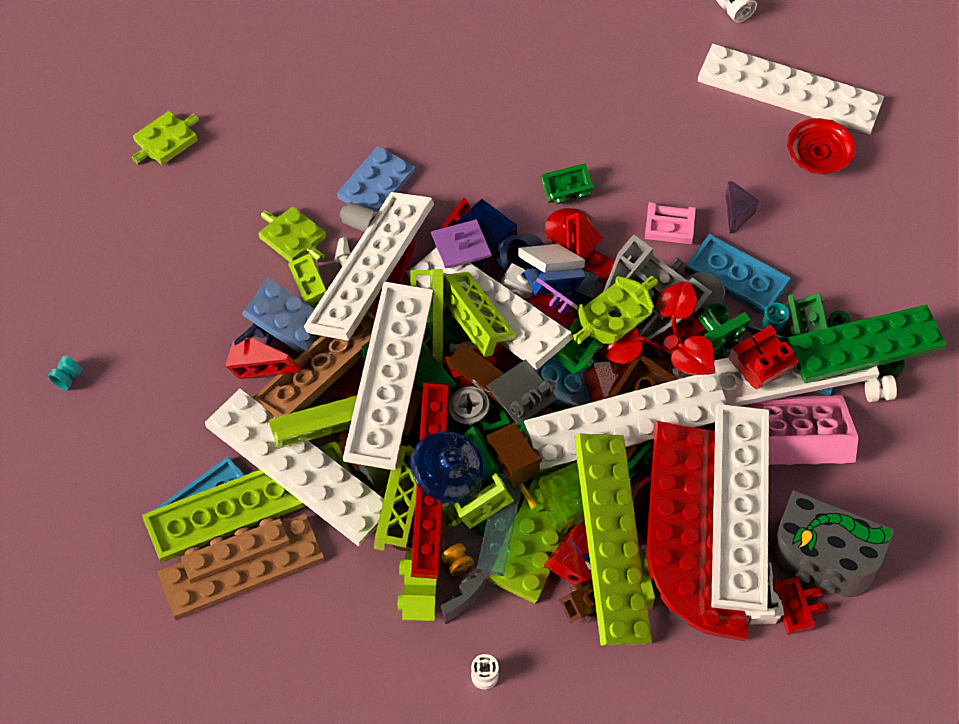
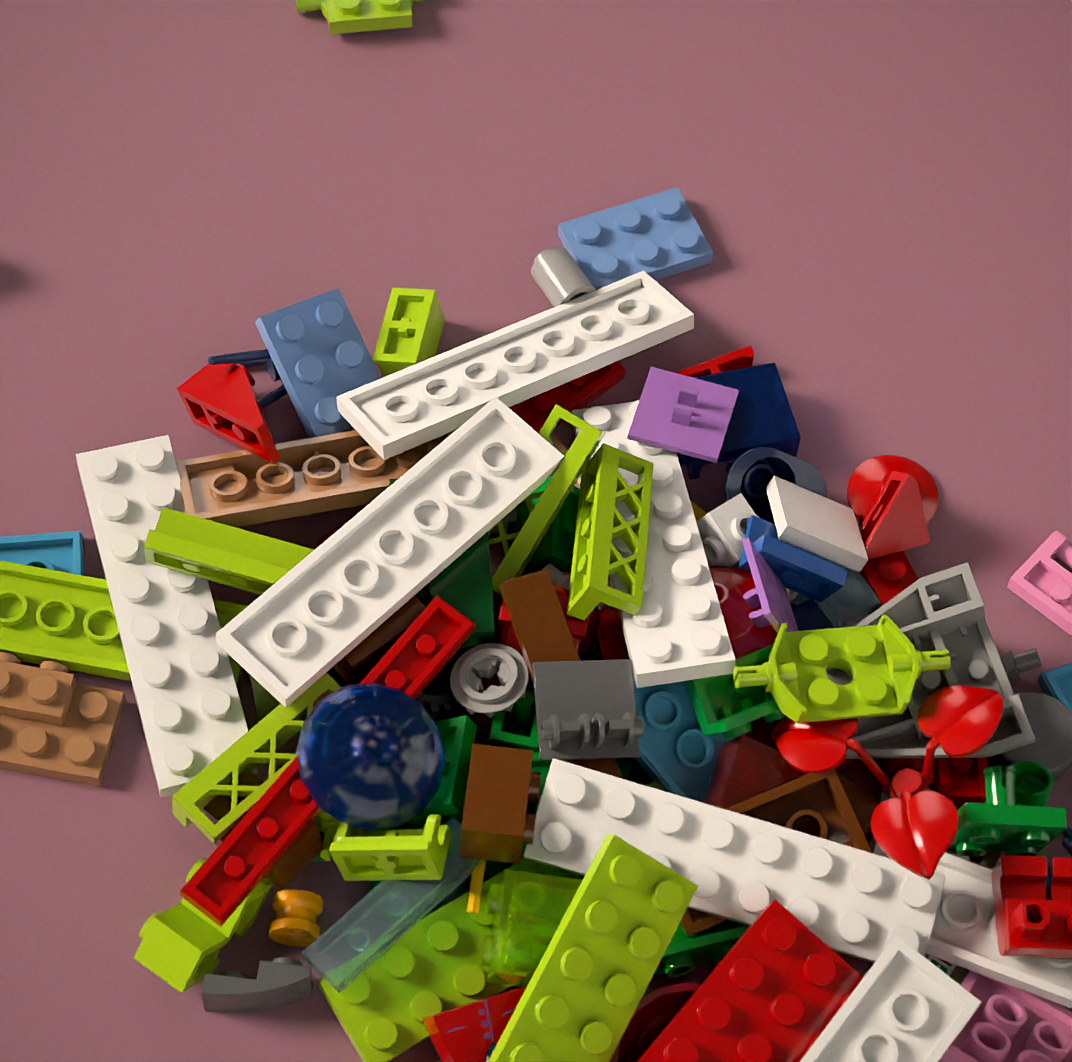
camera: 30 degrees right, 0 degrees up
(292, 235) = (442, 250): lime plate -> none
(342, 251) = (499, 317): white bar -> none
(567, 183) = (941, 421): green bracket -> none

